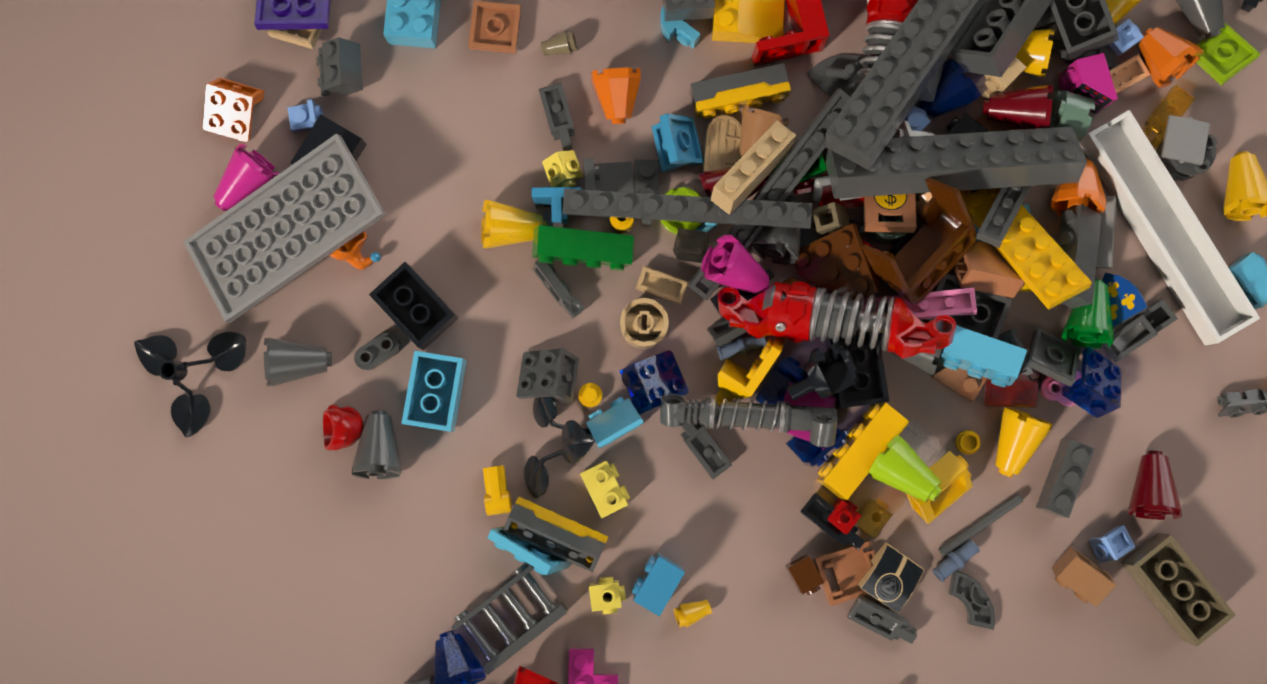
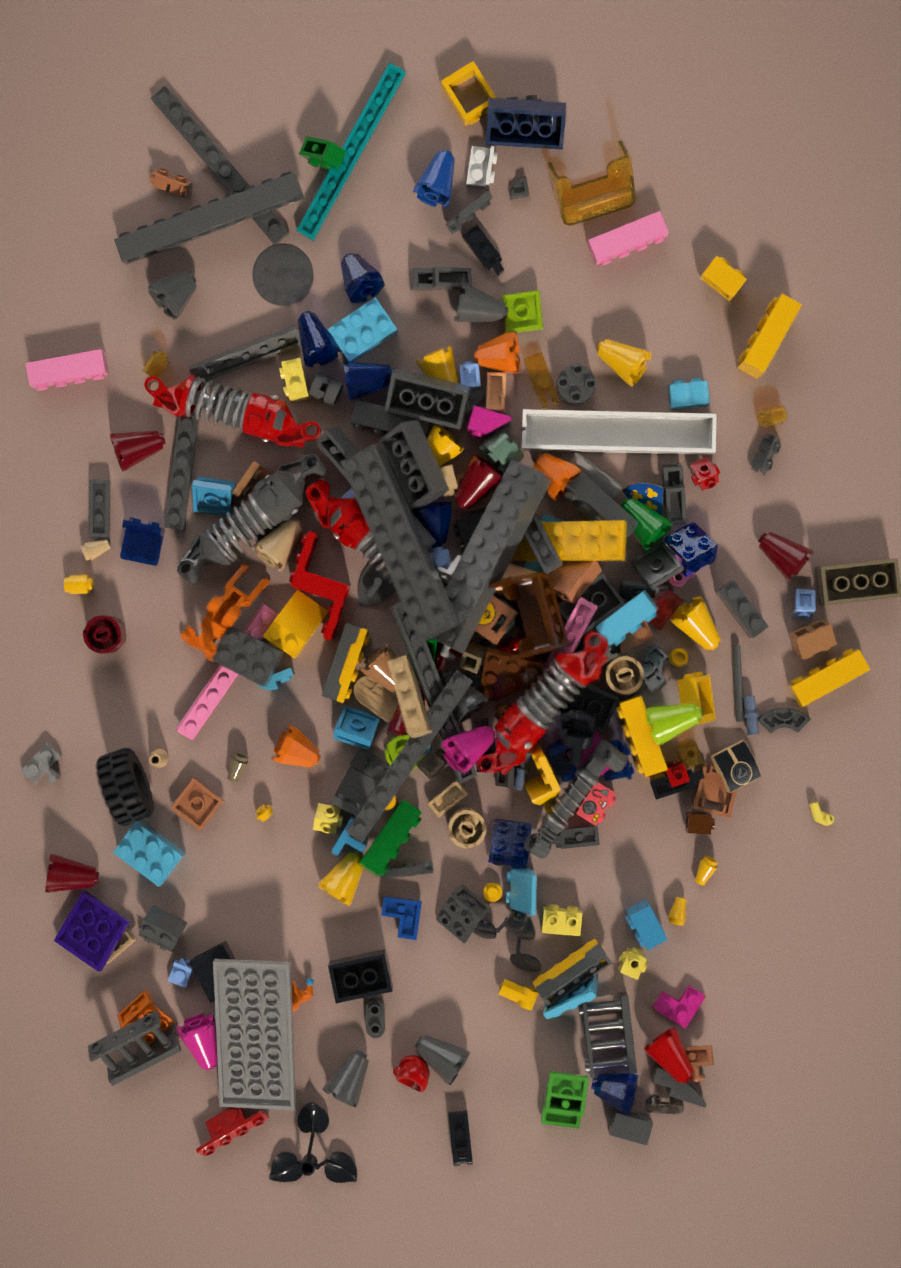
camera: 55 degrees left, 5 degrees up
(165, 264) = (228, 1126): none -> red bracket
(177, 122) = (140, 1060): none -> dark grey fence
(299, 523) = (460, 1137): none -> black plate
(410, 612) = (564, 1099): none -> bright green bracket
(434, 391) = (427, 996): medium azure brick -> none
(513, 317) = (408, 912): none -> blue plate
(528, 100) = (264, 812): none -> yellow plate
(558, 114) = (286, 797): dark grey hinge -> none
(756, 447) = (595, 804): none -> coral brick
(756, 614) = (705, 870): none -> yellow cone
(881, 620) = (760, 789): dark grey hinge -> none
(914, 392) = (623, 675): none -> tan brick
(940, 420) = (653, 668): none -> dark grey tile
(1052, 621) = (829, 677): none -> yellow brick
(1183, 347) = (704, 473): none -> red brick
(1185, 140) = (566, 385): light grey piece -> none

